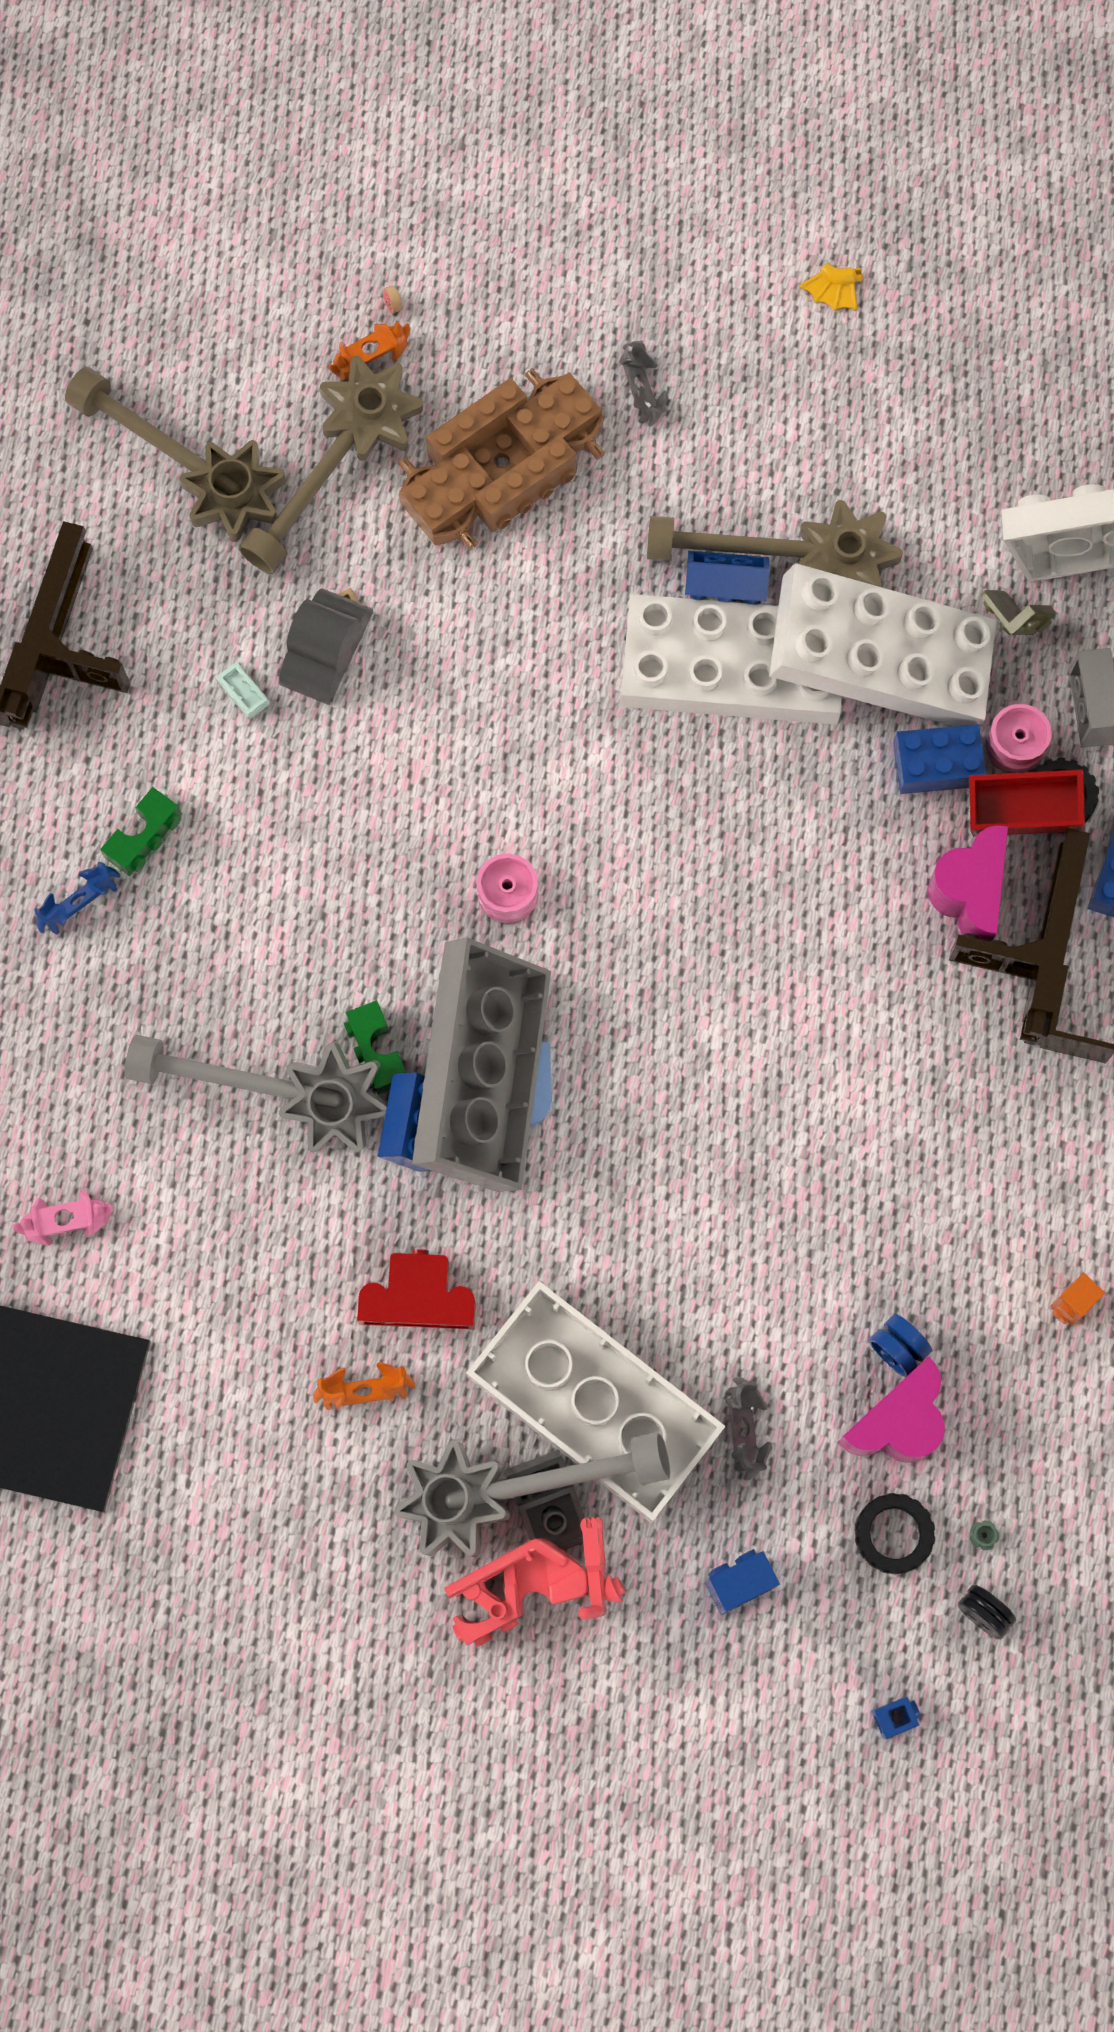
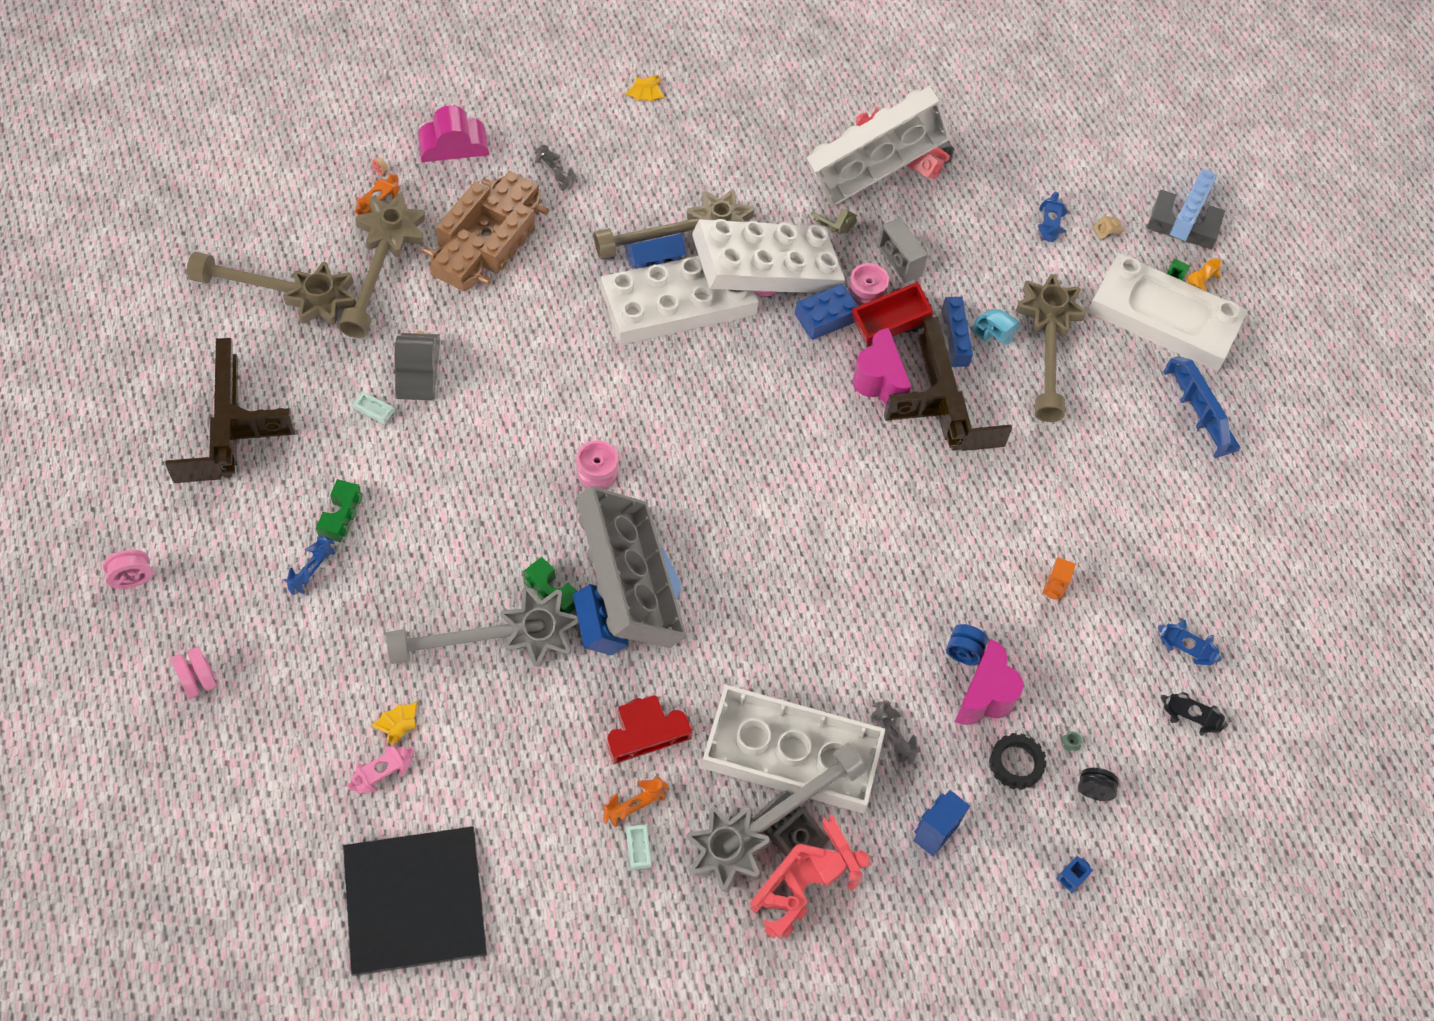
camera: 30 degrees left, 15 degrees down
(108, 1160) = (397, 722): none -> yellow arm
(343, 1450) = (638, 847): none -> light aqua plate
(513, 284) = (452, 136): none -> dark pink brick

